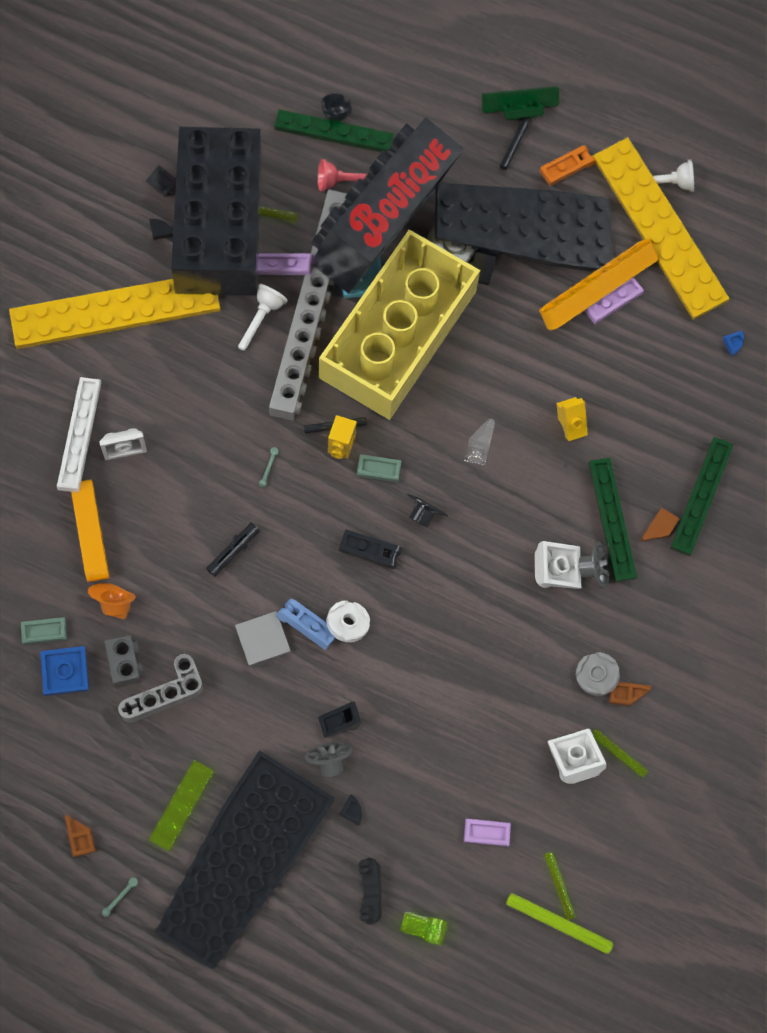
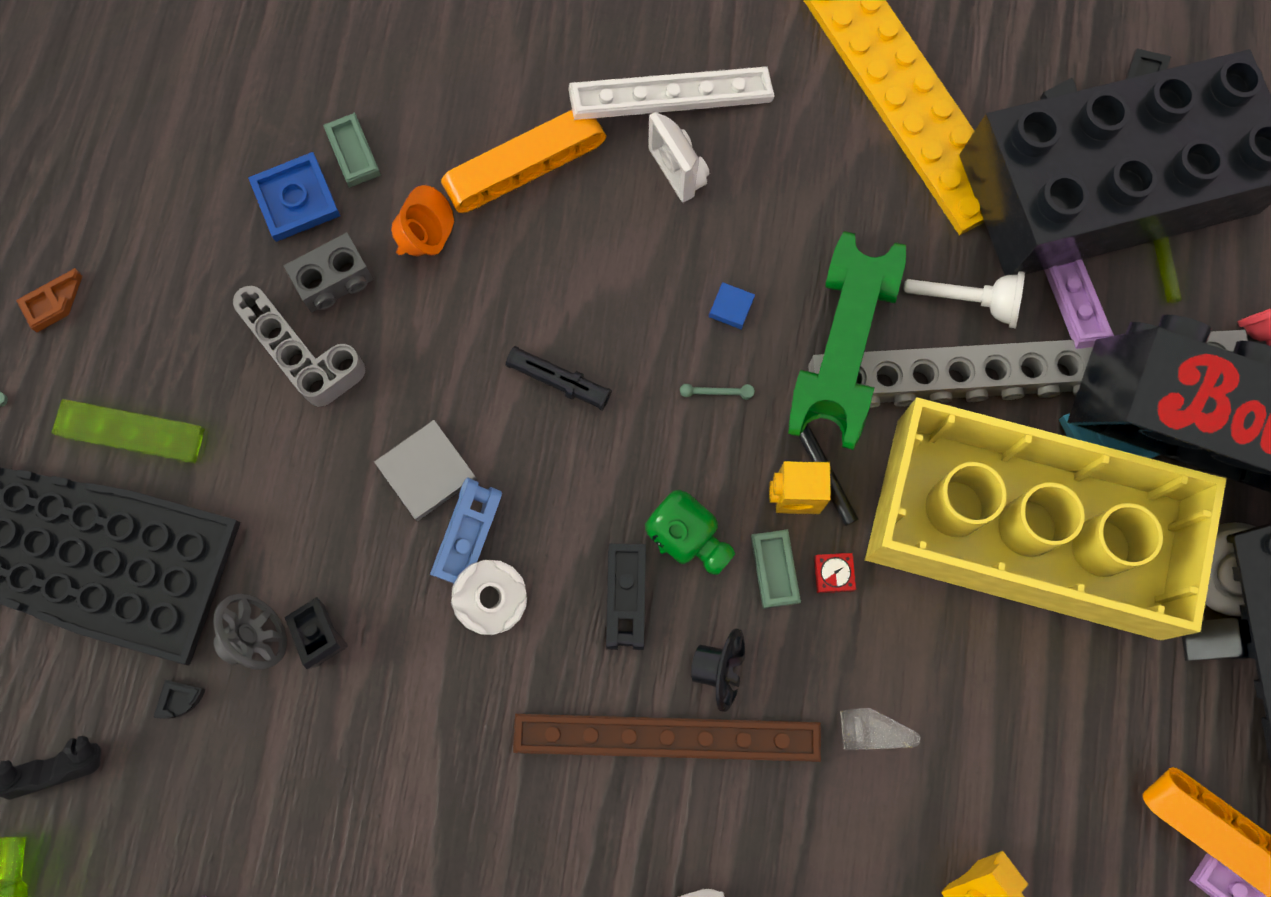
camera: 80 degrees right, 5 degrees up
(221, 443) = (731, 305): none -> blue tile
(294, 399) = (834, 390): none -> green piece
(346, 504) = (687, 530): none -> green piece
(391, 438) = (835, 573): none -> tile
(451, 553) = (667, 737): none -> reddish brown tile

